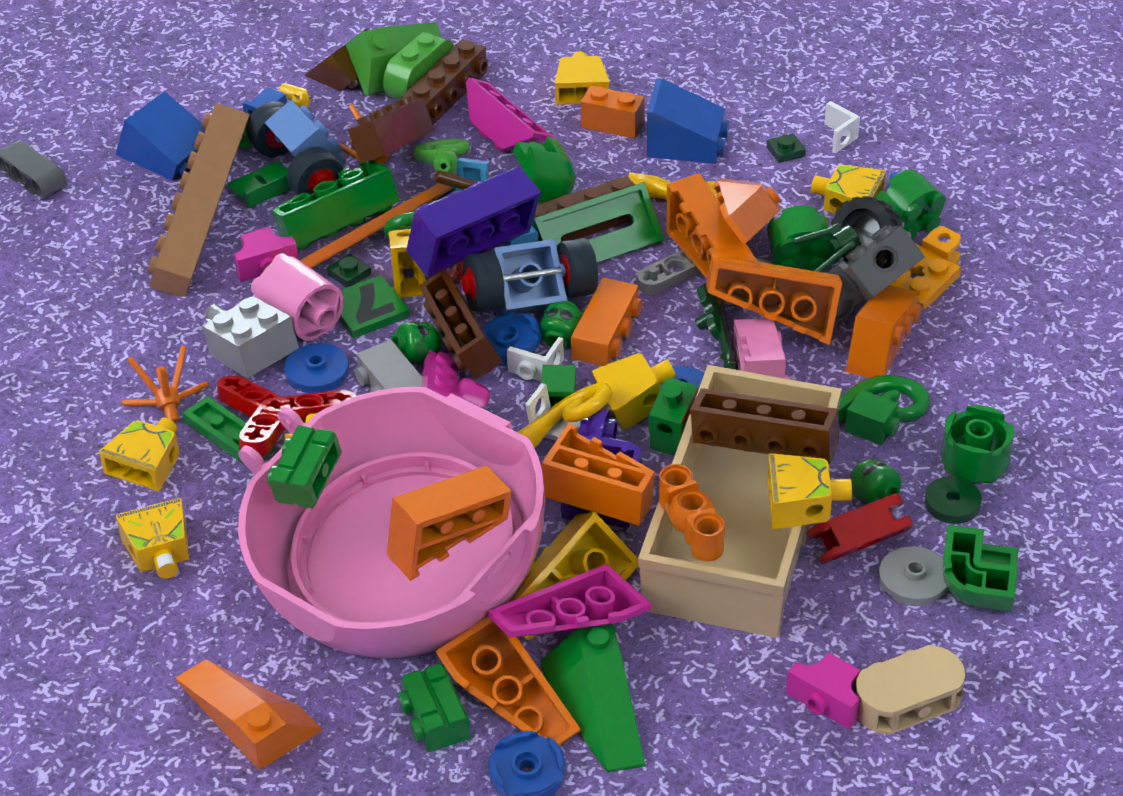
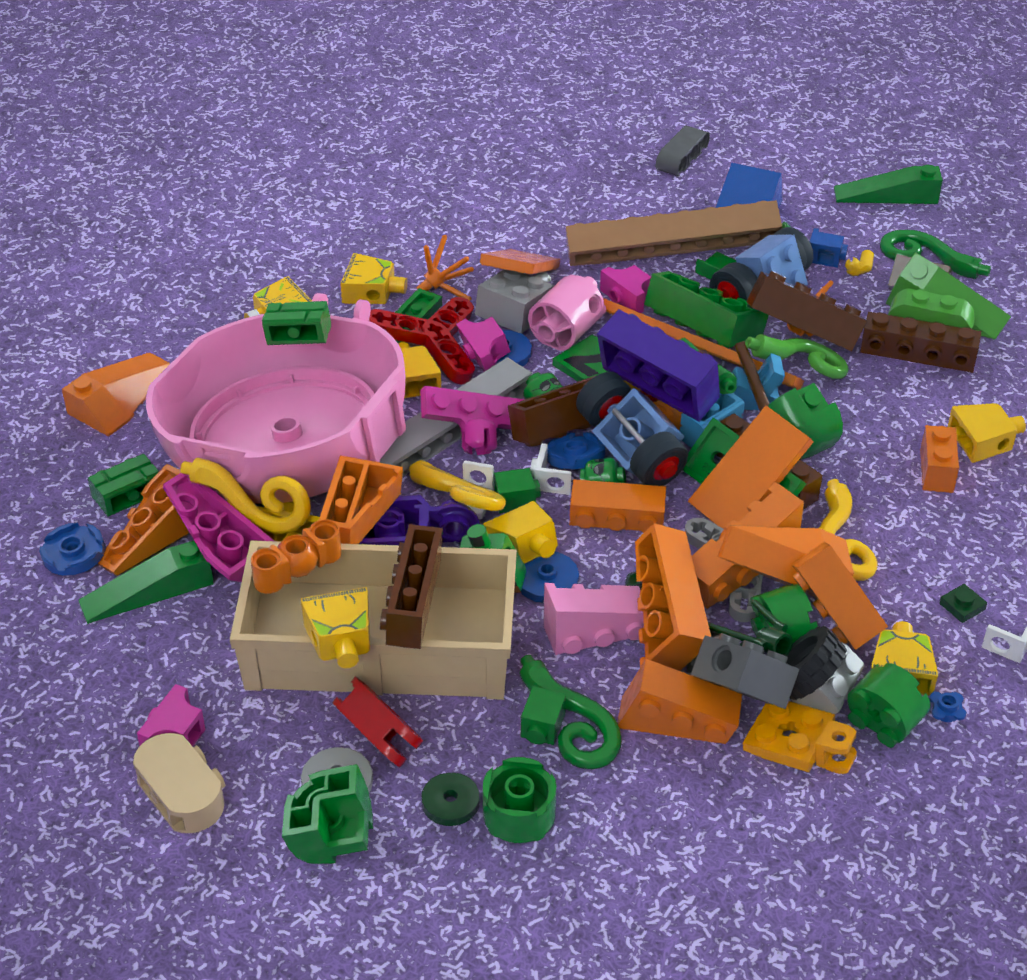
camera: 75 degrees right, 0 degrees up
(183, 44) = (900, 186): none -> green wedge
(198, 313) = (519, 261): none -> orange tile
(283, 50) = (913, 239): none -> green plant
(323, 369) = (483, 341): none -> dark pink brick
(443, 515) = (236, 396): orange wedge -> none
(500, 118) = (889, 390): dark pink wedge -> none
(523, 579) = (217, 477): none -> yellow plant
(611, 214) = (750, 467): none -> orange tile
(684, 125) = (939, 507): blue slope -> none
(787, 186) = (838, 596): none -> orange brick
(874, 481) = (448, 728): green head -> none

